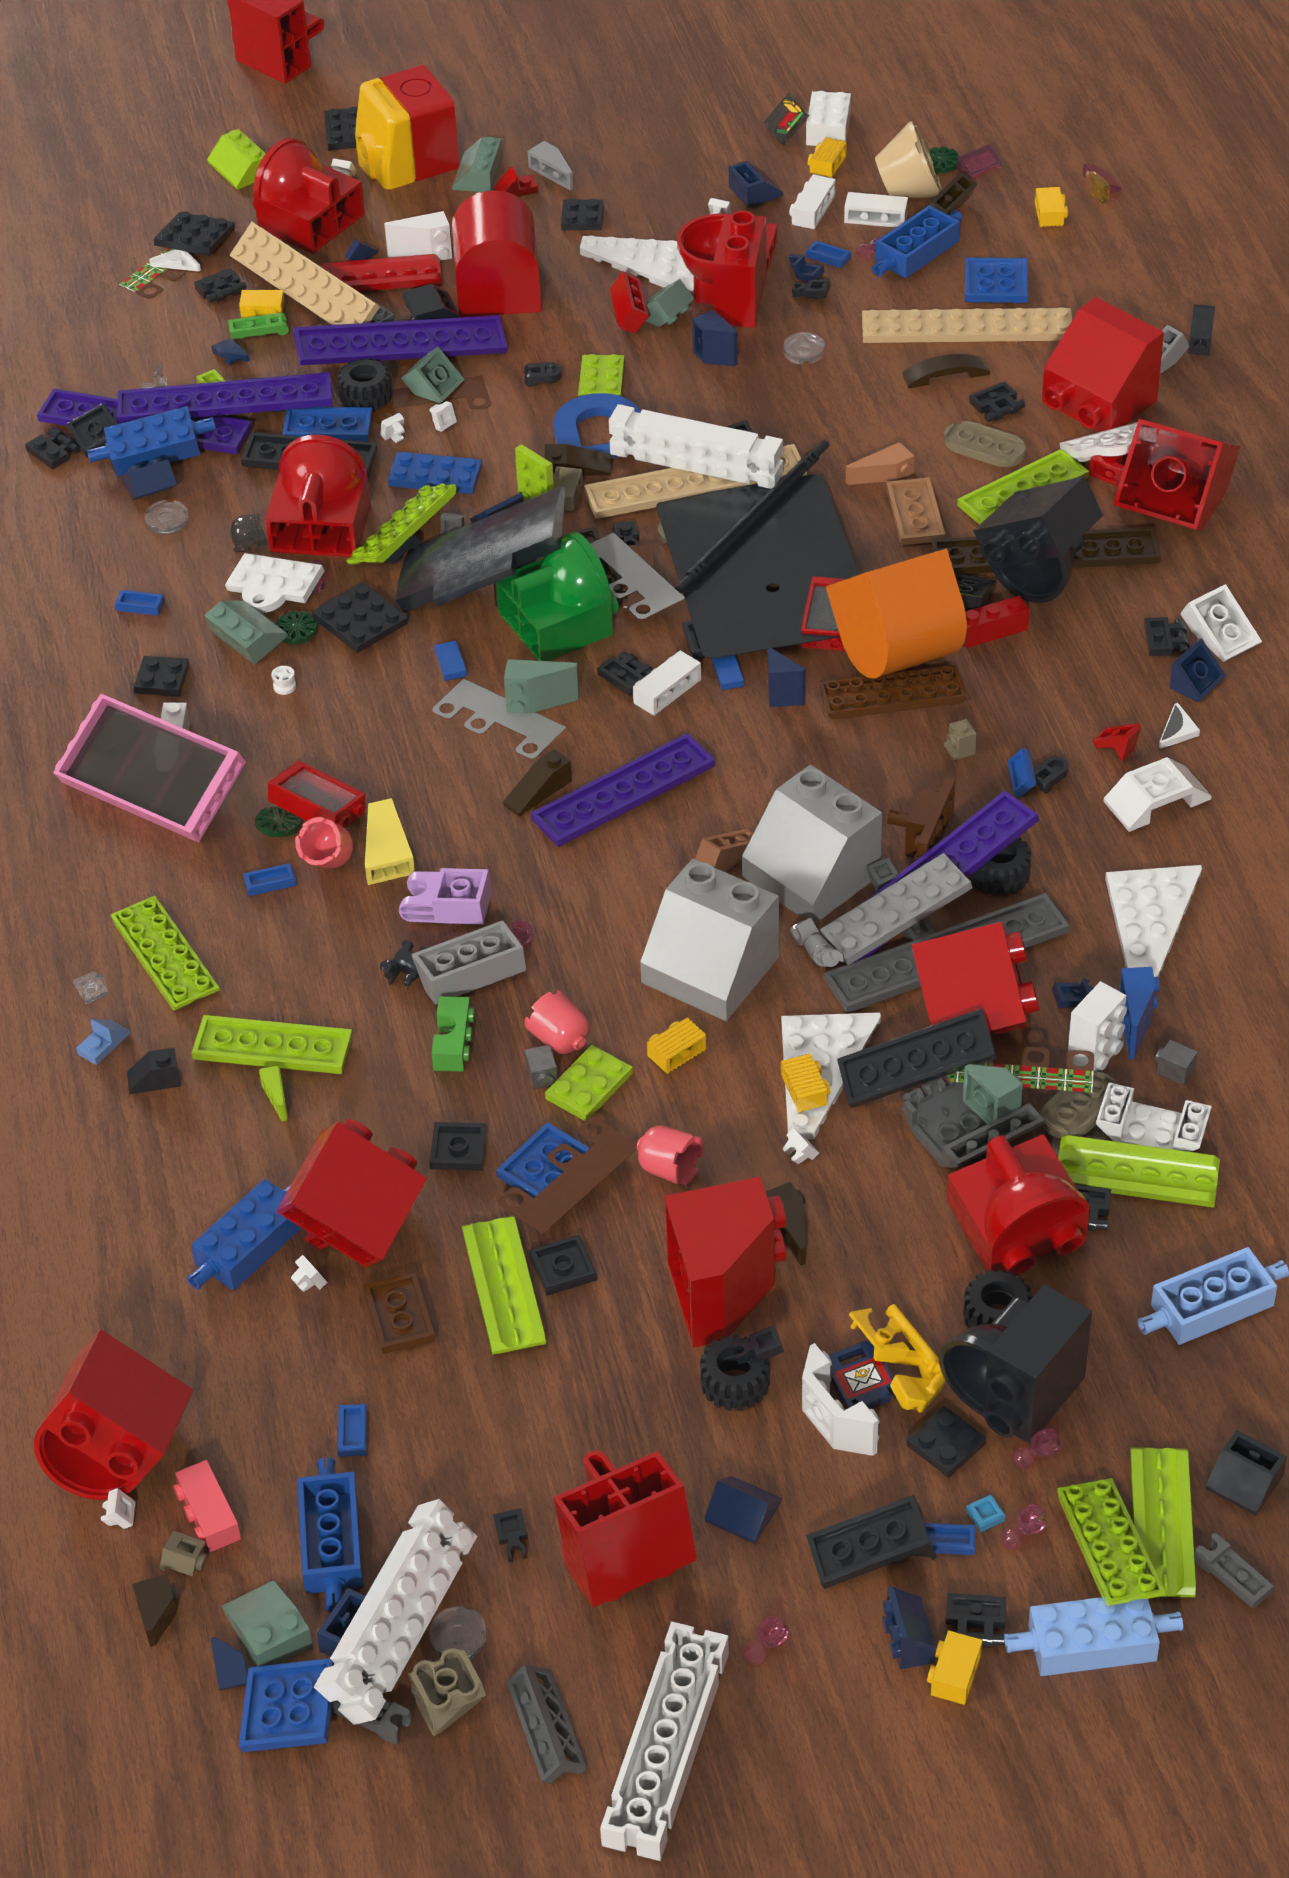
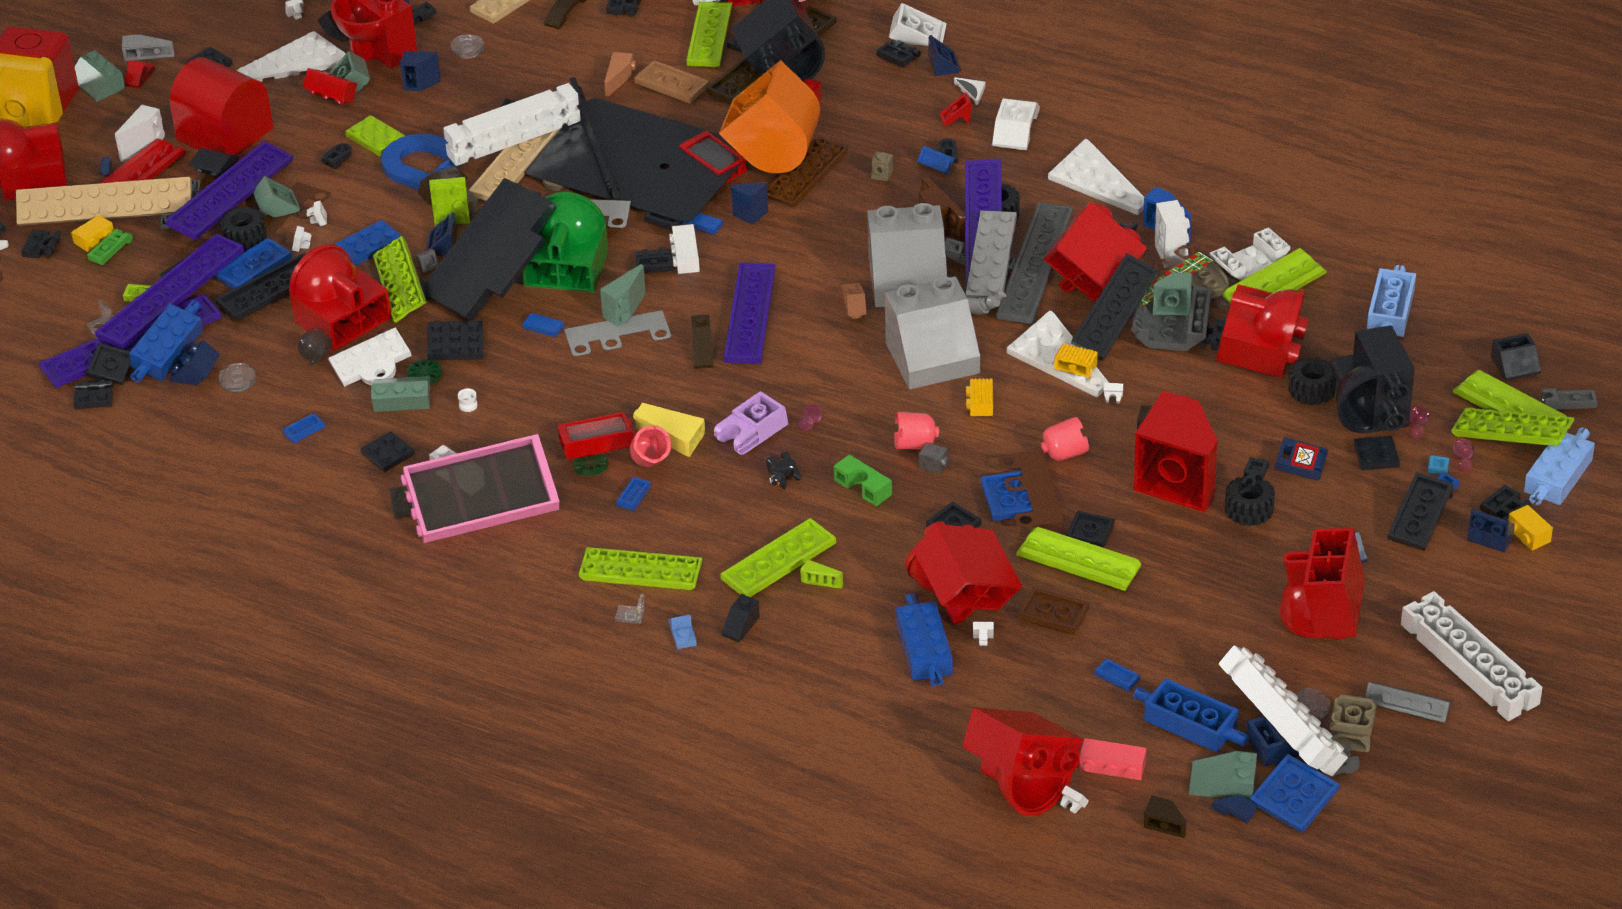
camera: 50 degrees left, 5 degrees down
(183, 1554) = (1138, 786): dark tan brick -> none
(230, 351) = (116, 269): dark blue slope -> none
(469, 961) = (818, 441): light grey slope -> none
(511, 1530) = (1263, 645): black plate -> none
(588, 1083) = (965, 448): lime plate -> none
(771, 1634) = (1432, 580): clear pink plate -> none
(845, 1430) = (1315, 478): white slope -> none
(908, 1390) = (1333, 432): yellow piece -> none
(985, 444) = (649, 27): dark tan tile -> none
(1176, 1062) = (1215, 226): flat silver brick -> none

